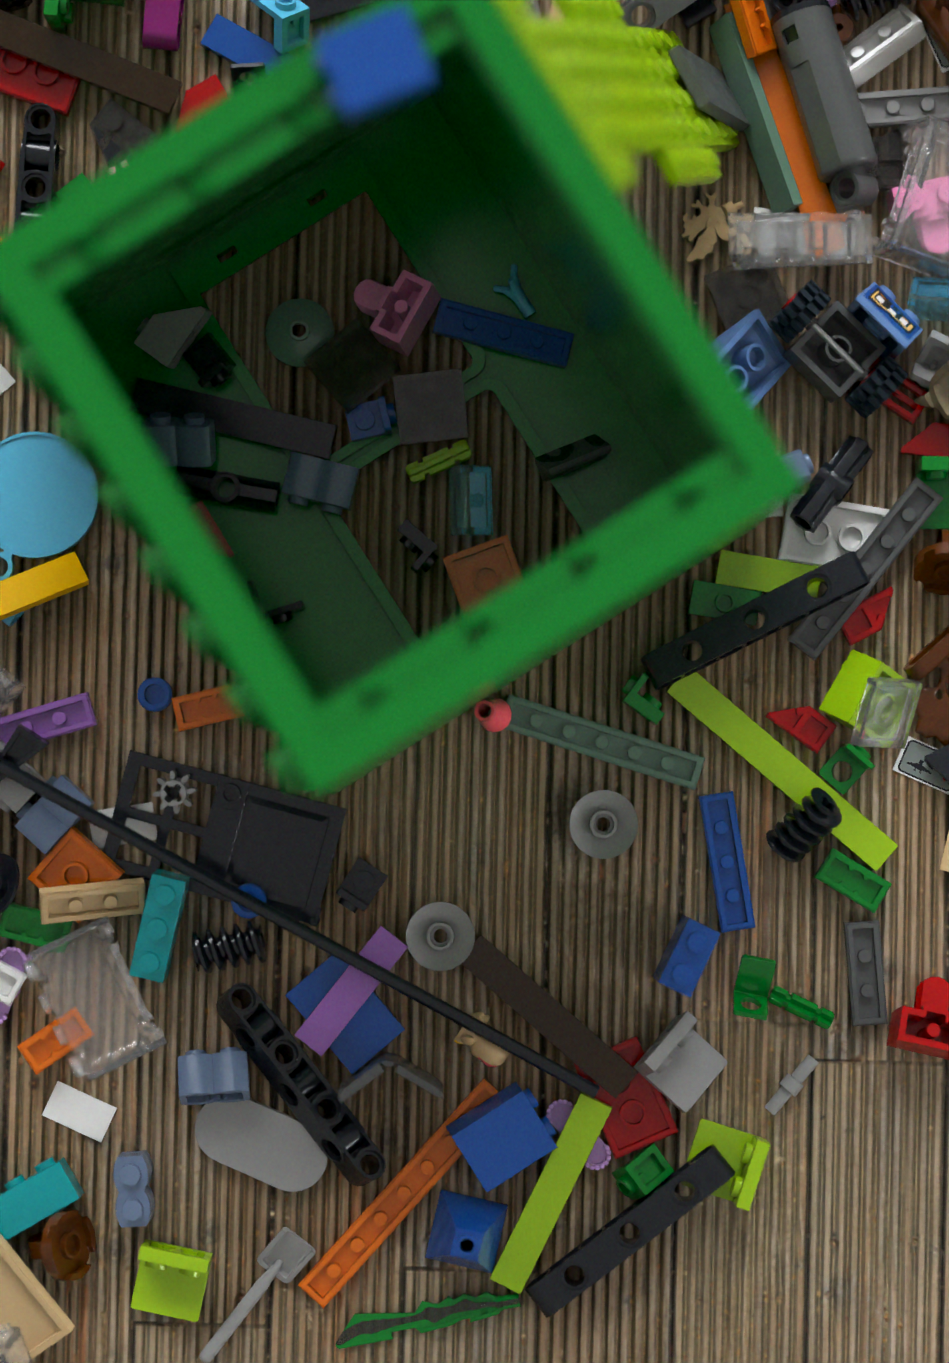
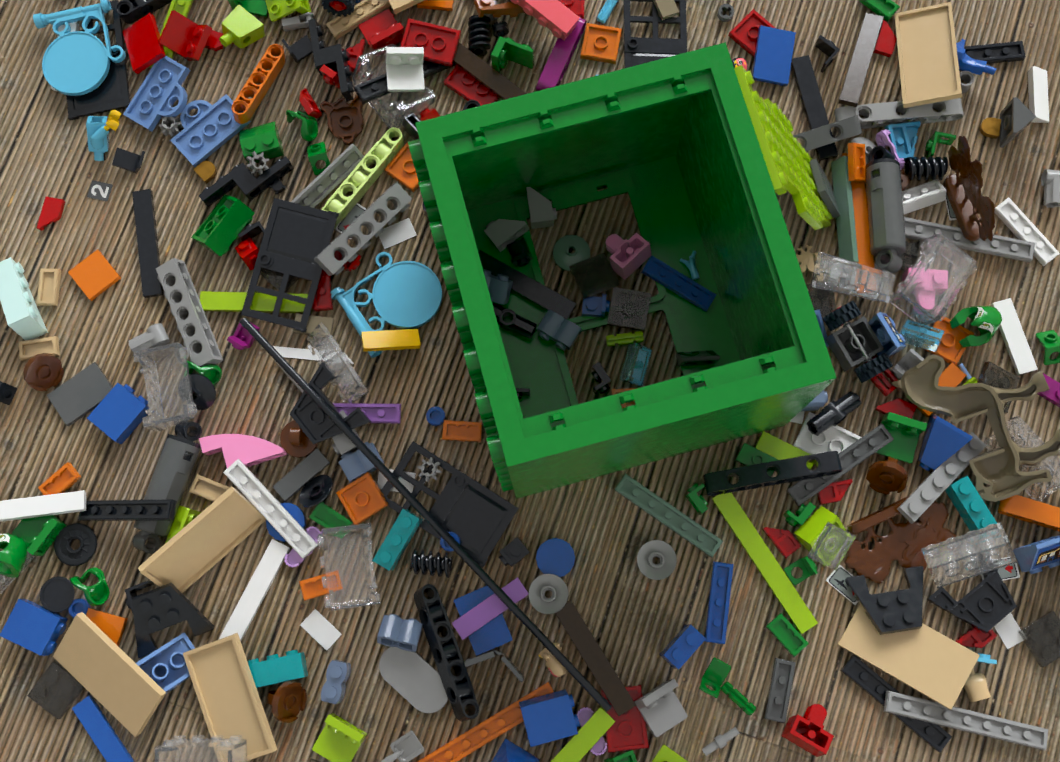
camera: 30 degrees right, 10 degrees down
(92, 900) = (364, 513): tan tile -> none
(221, 274) = (540, 210): none -> light grey slope
(374, 63) = (661, 84): blue brick -> none
(433, 871) = (555, 557): none -> blue tile
(499, 716) = (613, 480): coral cone -> none
(805, 826) = (769, 597): black piece -> none
(825, 669) = (802, 512): none -> green bracket

